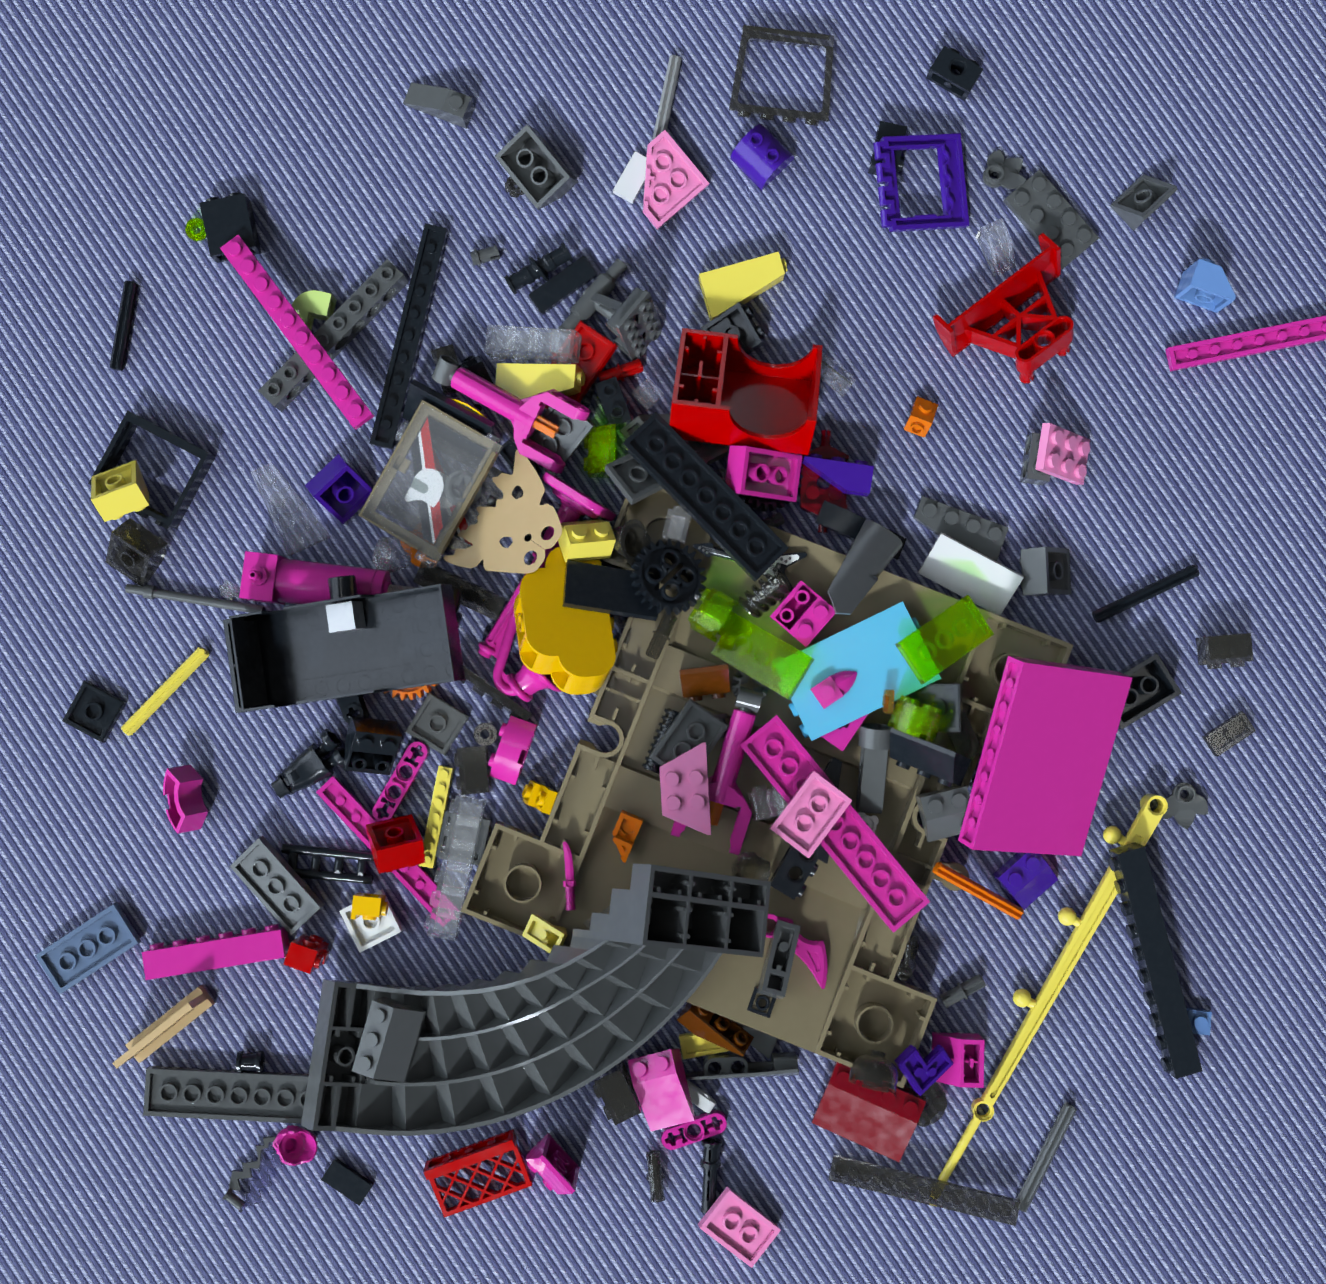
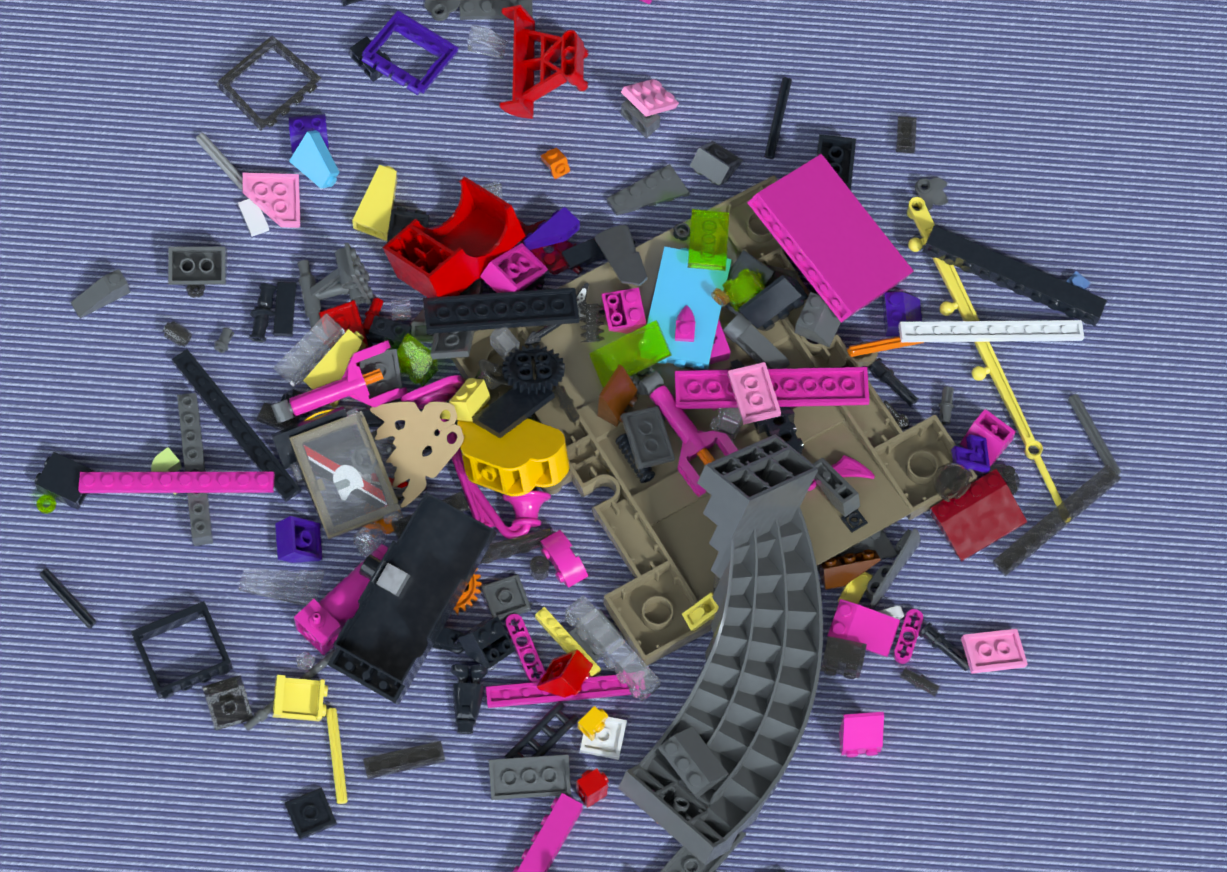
camera: 60 degrees left, 20 degrees down
(119, 491) = (182, 671): light yellow slope -> none
(185, 798) = (421, 792): dark pink brick -> none
(187, 614) = (299, 698): none -> light yellow panel
(206, 756) = (404, 760): none -> clear smoke plate
(456, 206) = (177, 333): none -> clear smoke brick
(470, 1155) = (813, 793): red fence -> none
(473, 770) = (555, 594): clear smoke brick -> none
(539, 796) = (608, 564): yellow slope -> none
(569, 883) = (680, 577): dark pink piece -> none
(626, 832) = (676, 523): orange slope -> none
(687, 789) = (676, 457): bright pink wing -> none
(712, 614) = (579, 363): clear neon green brick -> none
(733, 187) = (315, 160): none -> medium azure slope
(930, 599) = (681, 227): none -> black plate
(947, 910) = (887, 376): none -> black pin
(970, 574) = (677, 204): white tile -> none
(1074, 982) = (991, 331): none -> white plate
(1224, 649) = (850, 98): clear smoke brick -> none

